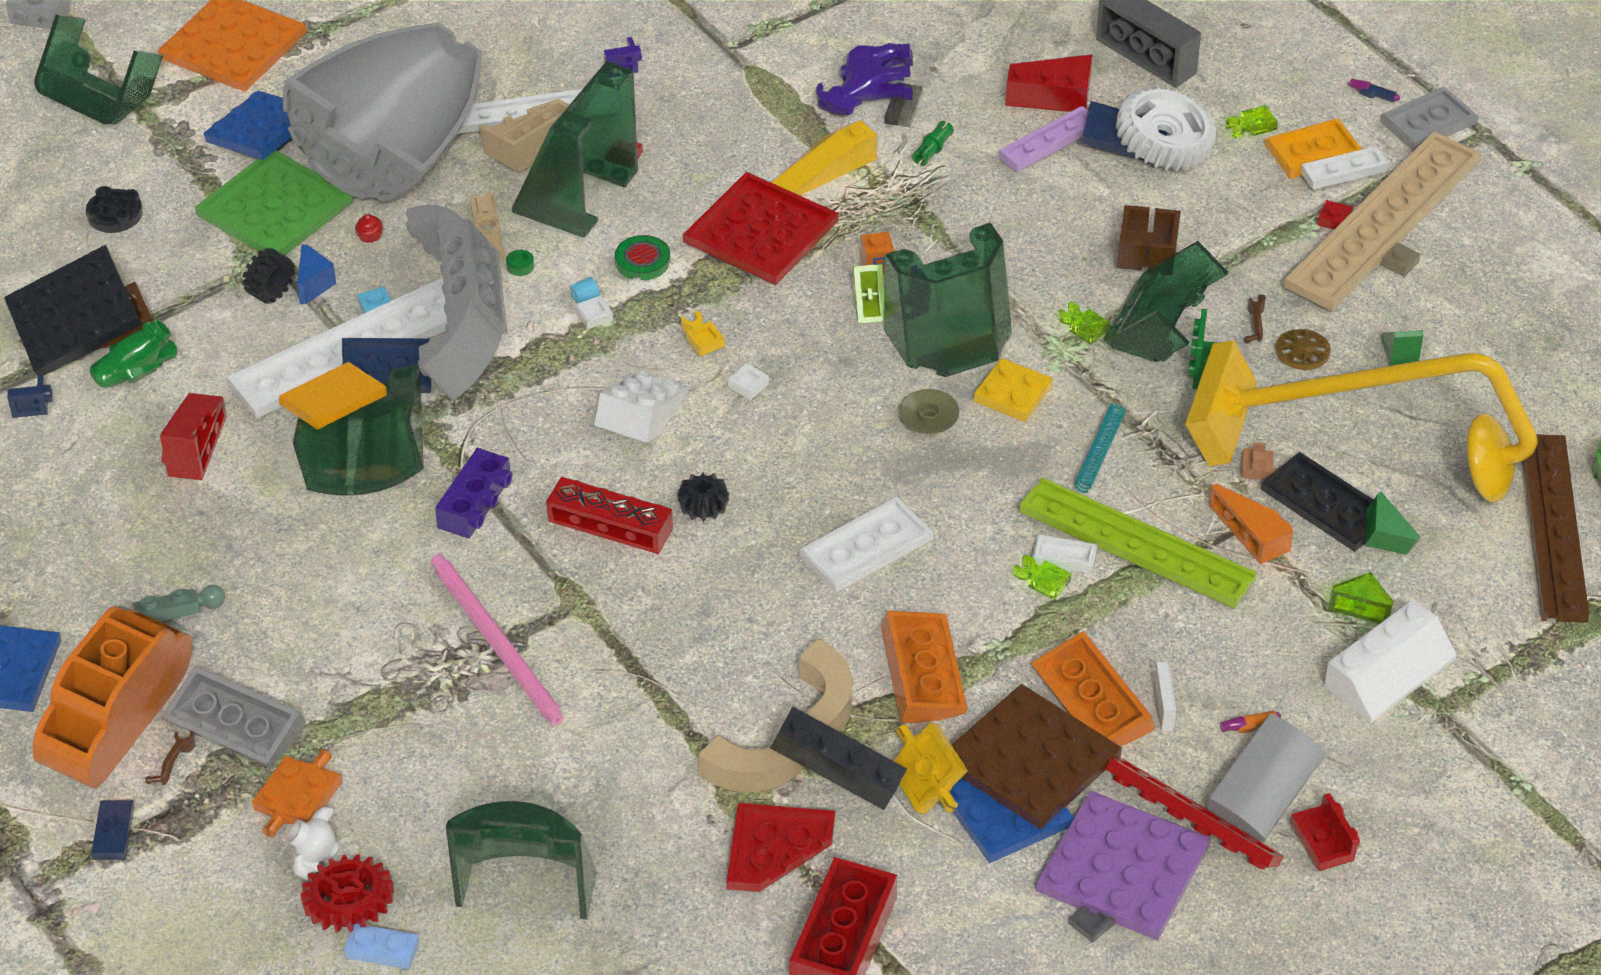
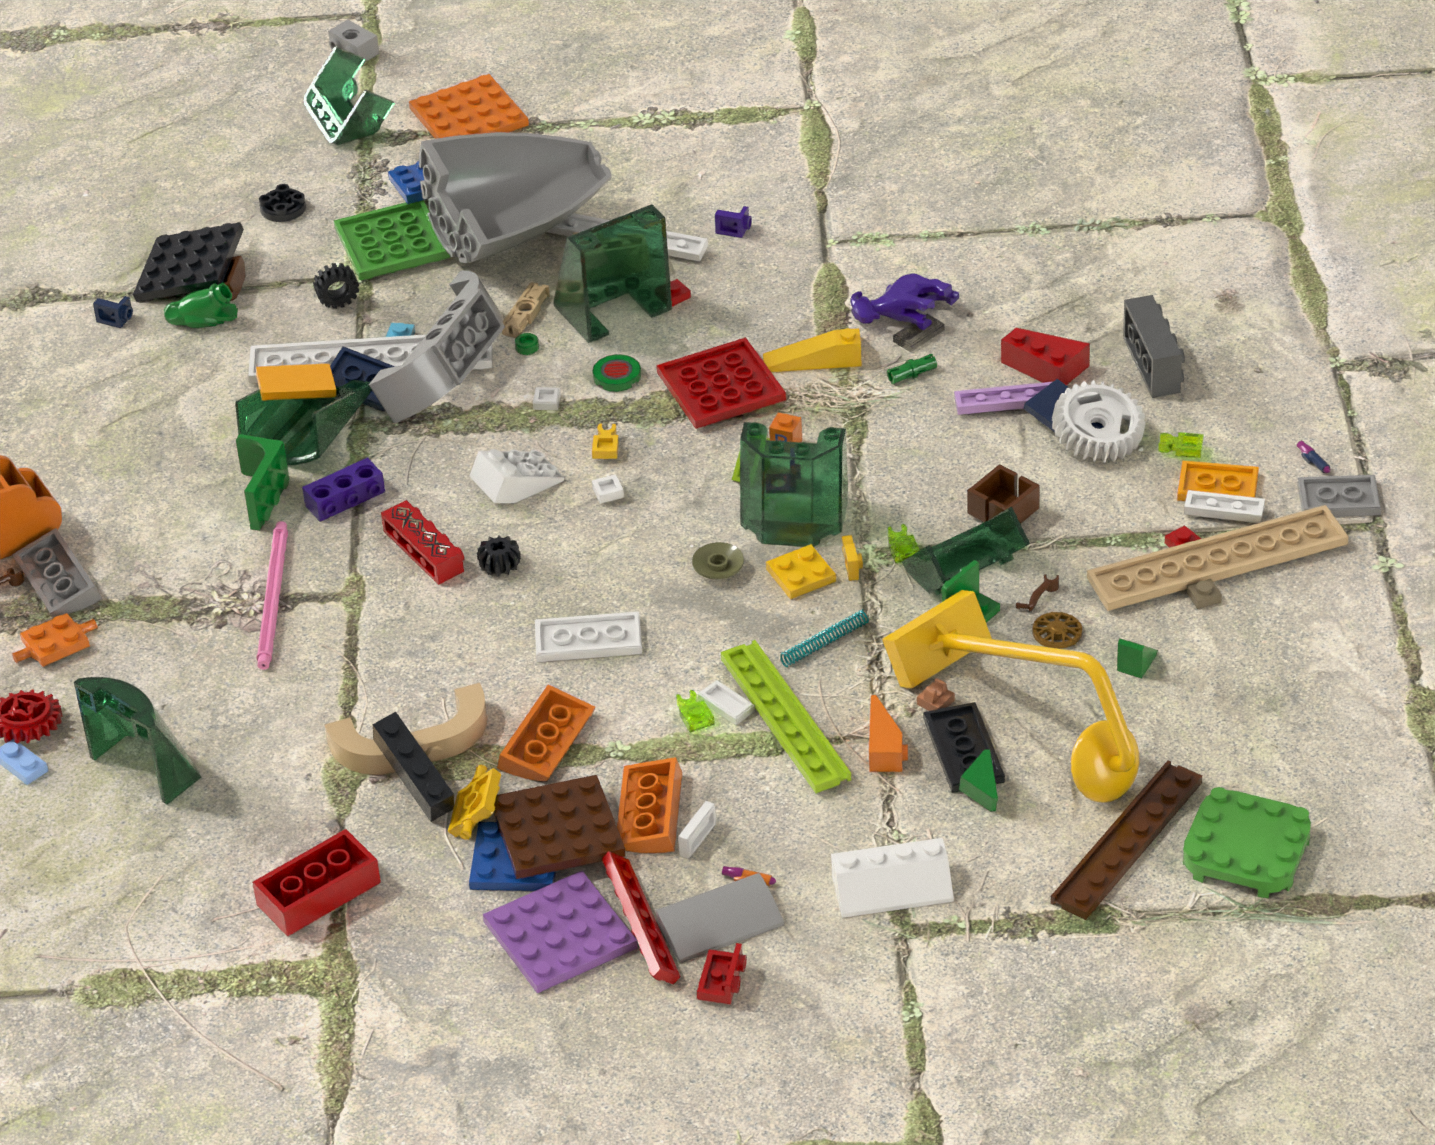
camera: 35 degrees right, 5 degrees down
(179, 603) = (82, 485): sand green plate -> none
(192, 435) = (191, 375): red wedge -> none
(312, 842) = (31, 673): white piece -> none
(314, 275) = (369, 298): blue slope -> none
(369, 228) = (441, 279): red plate -> none
(375, 496) = (268, 467): none -> green bracket
(584, 290) = (551, 379): medium azure hose -> none
(774, 842) = (330, 807): red plate -> none
(1056, 357) = (853, 560): none -> yellow plate
(1090, 924) = (499, 960): flat silver tile -> none
(1362, 599) = (912, 821): clear neon green slope -> none

